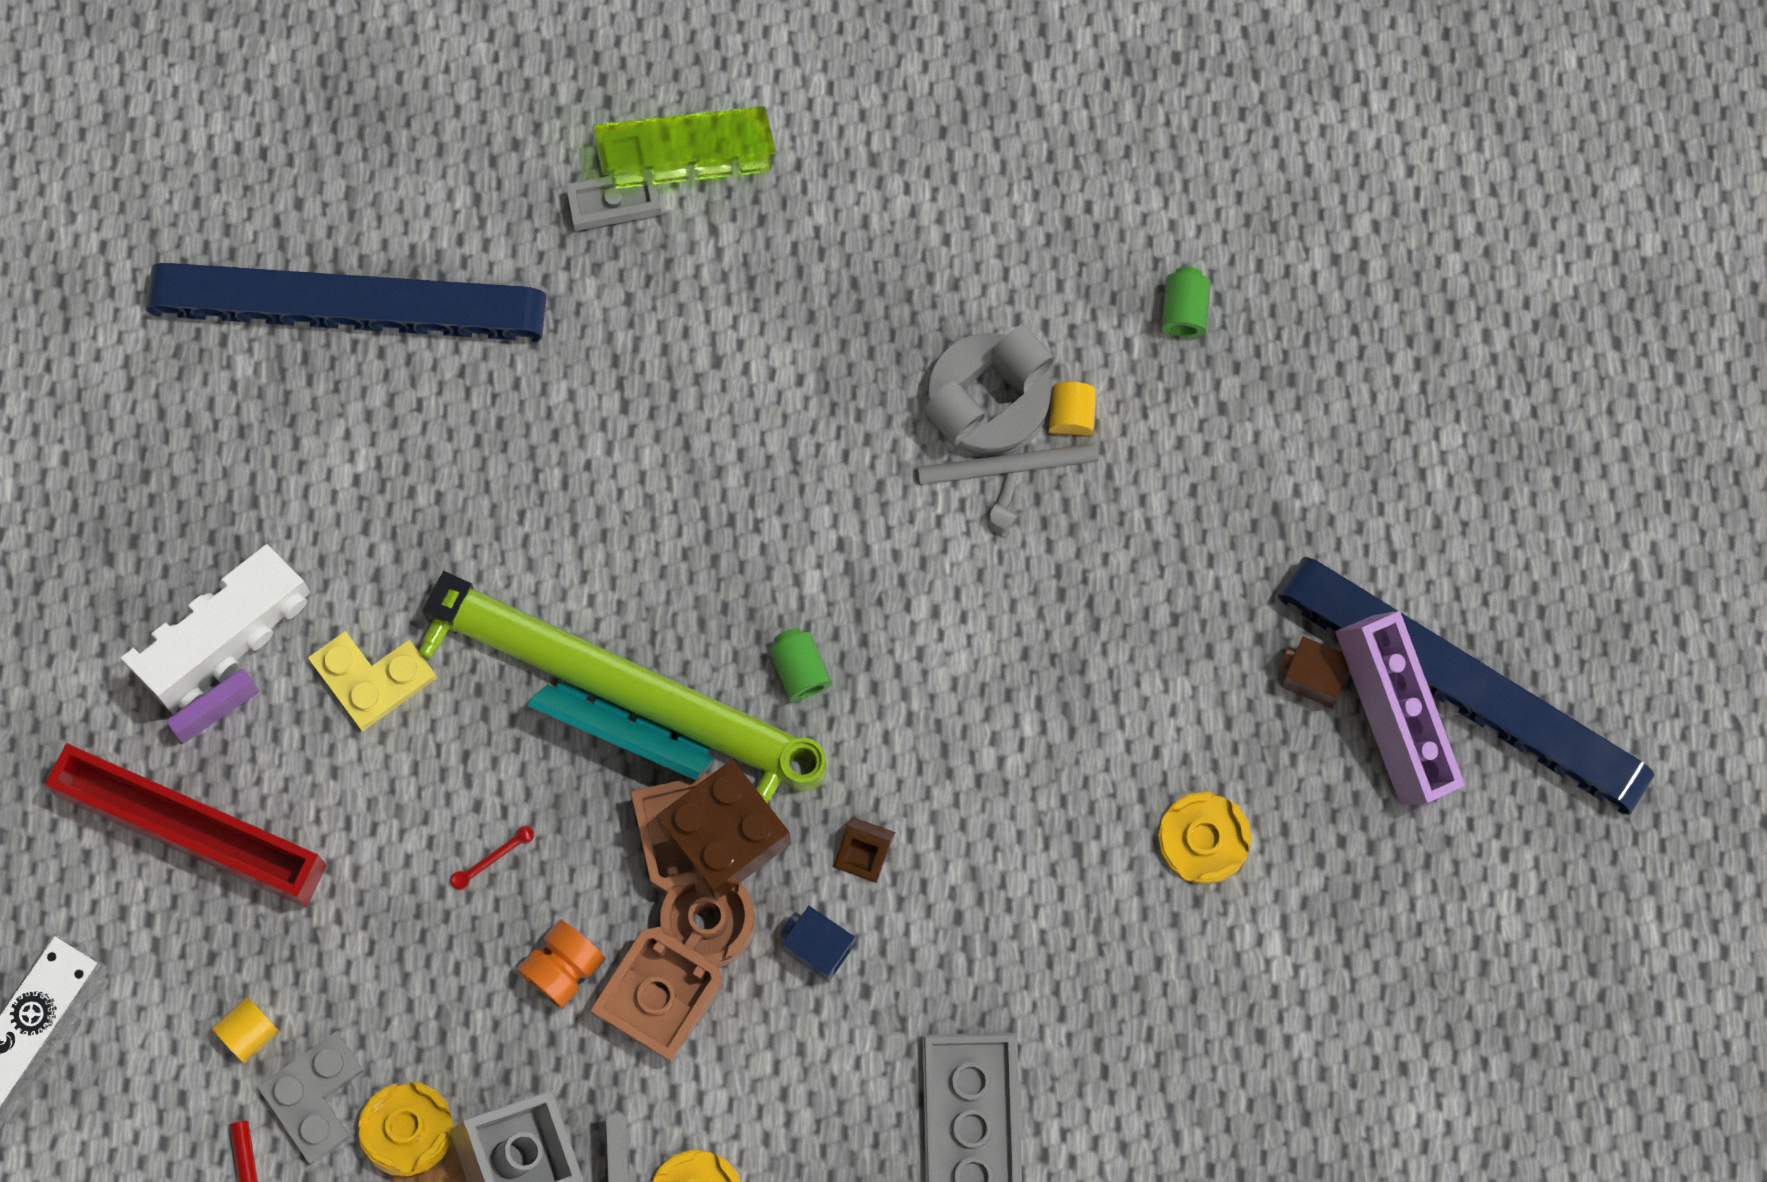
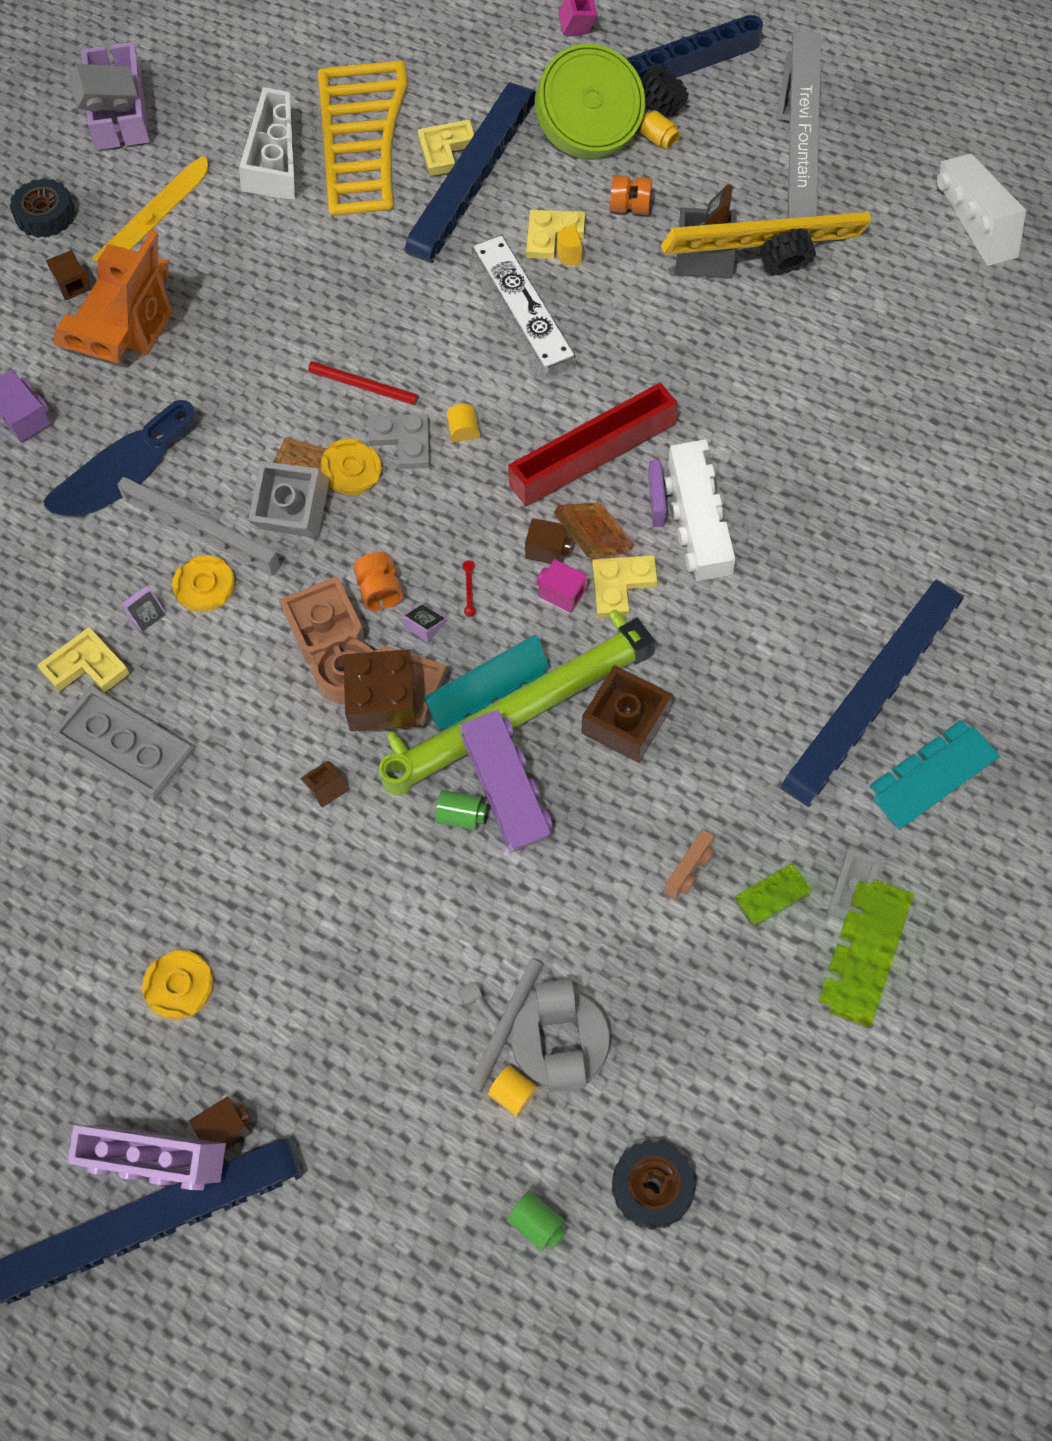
camera: 125 degrees right, 10 degrees down
(319, 745) = (594, 529): none -> clear orange tile
(370, 794) = (547, 541): none -> reddish brown brick
(424, 189) = (940, 774): none -> teal windscreen
(424, 738) = (562, 585): none -> dark pink brick
(559, 549) = (626, 713): none -> reddish brown brick
(575, 877) = (423, 622): none -> slope
(679, 276) = (772, 895): none -> clear neon green plate
(719, 377) = (698, 854): none -> nougat plate
(737, 626) = (505, 781): none -> medium lavender brick
(817, 942) = (287, 718): dark blue brick -> none
(1078, 241) = (643, 1204): none -> black wheel

